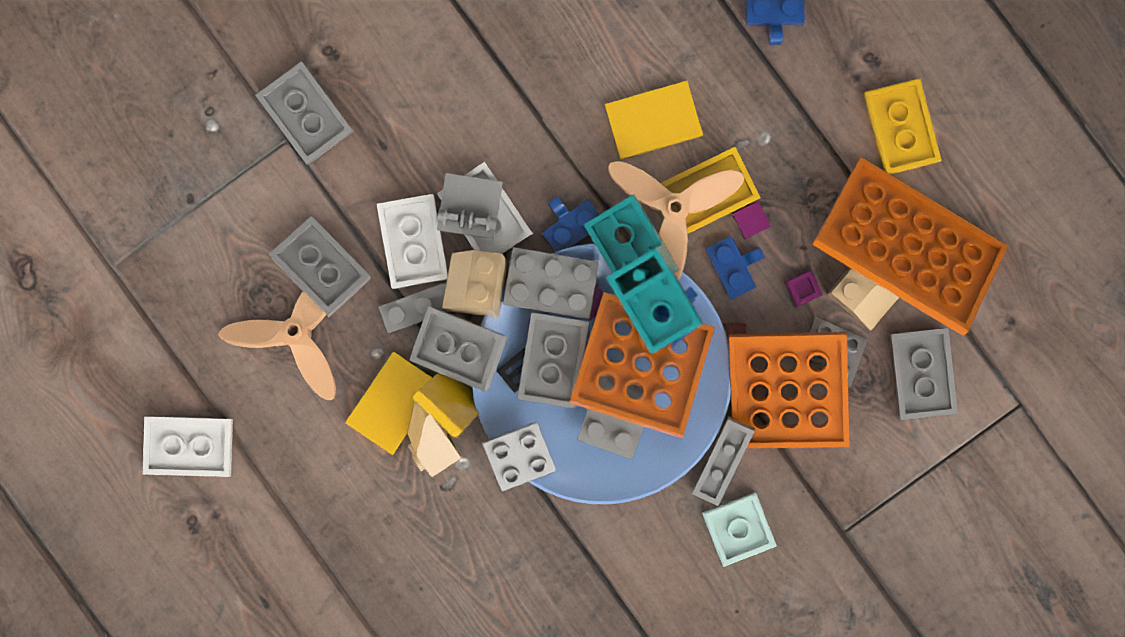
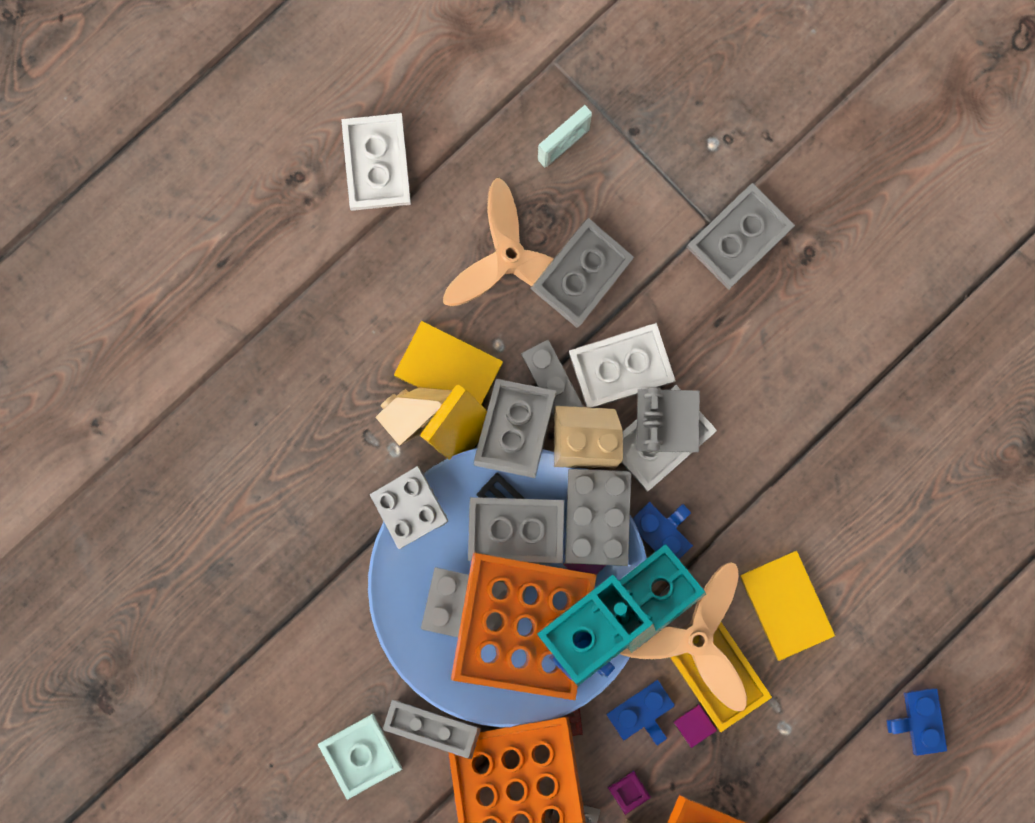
camera: 85 degrees right, 5 degrees down
(188, 265) = (564, 136): none -> light aqua tile

